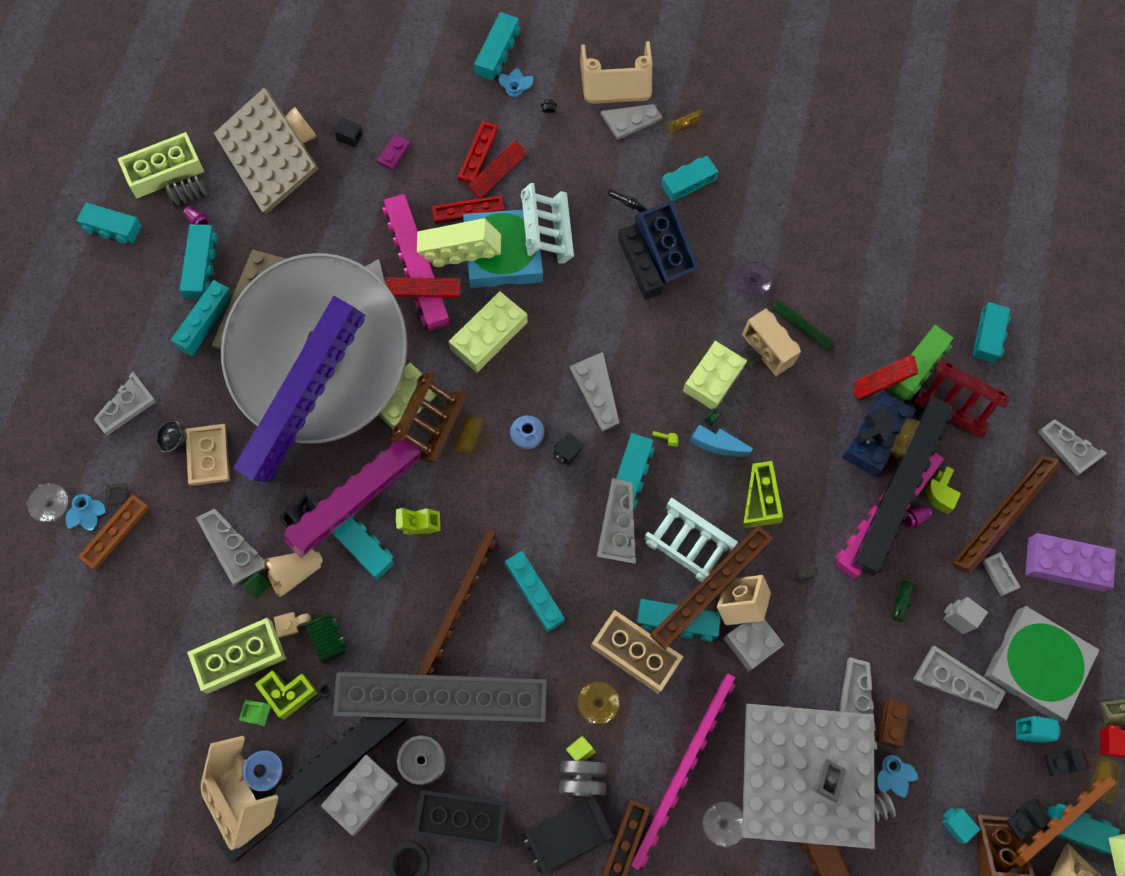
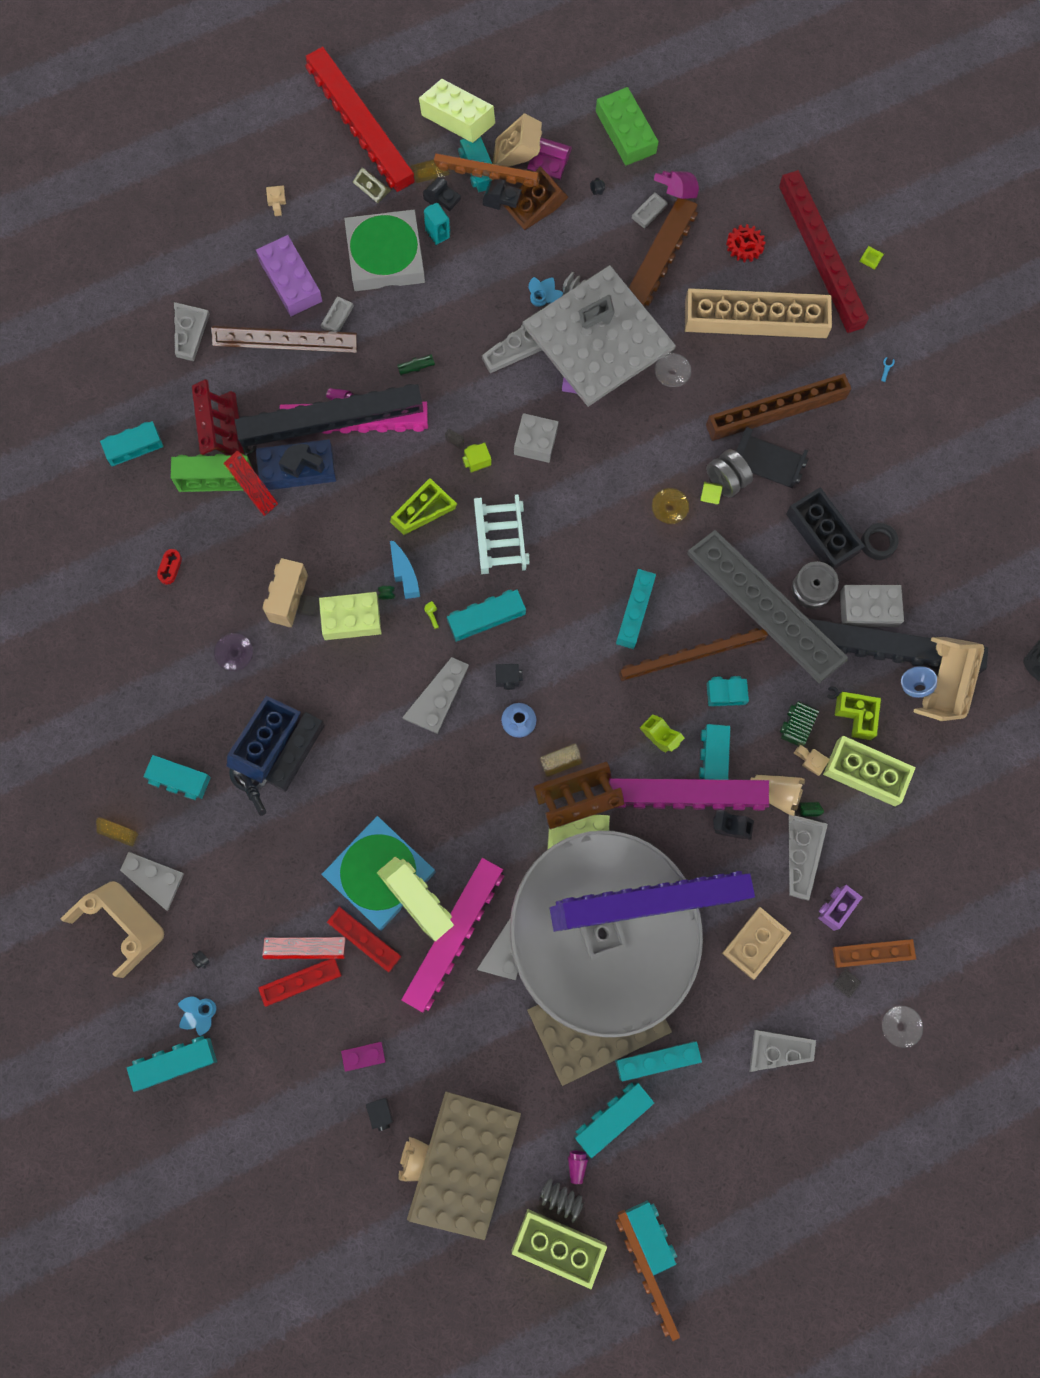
camera: 130 degrees left, 5 degrees up
(70, 197) = (650, 1283): none -> dark orange plate
(85, 516) = (883, 990): dark azure plate -> none
(167, 533) = (840, 907): none -> medium lavender brick
(171, 437) = (771, 983): black hat -> none
(254, 712) = (891, 721): bright green tile -> none
(403, 604) = (727, 692): none -> teal brick
(424, 287) = (475, 900): red tile -> none
(488, 331) = (464, 818): yellowish green brick -> none
(560, 219) = (316, 842): light aqua fence -> none
(617, 532) = (535, 589): light grey wing -> none
(636, 652) = (615, 506): tan brick -> none
(653, 613) = (565, 498): teal brick -> none
(680, 779) = (655, 420): dark pink plate -> none
(711, 587) = (525, 487): reddish brown plate -> none
(744, 600) = (516, 459): tan brick -> none
(776, 577) = (476, 457): none -> lime brick
(803, 325) = (244, 587): dark green axle -> none
(861, 287) = (165, 565): none -> red beam
(893, 723) = (511, 313): reddish brown brick -> none
(904, 438) = (288, 437): clear yellow slope -> none
(939, 493) = (309, 392): lime brick -> none
(955, 678) = (444, 303): light grey wing -> none
(959, 825) = (541, 233): teal brick -> none
(964, 615) = (394, 315): light grey brick -> none

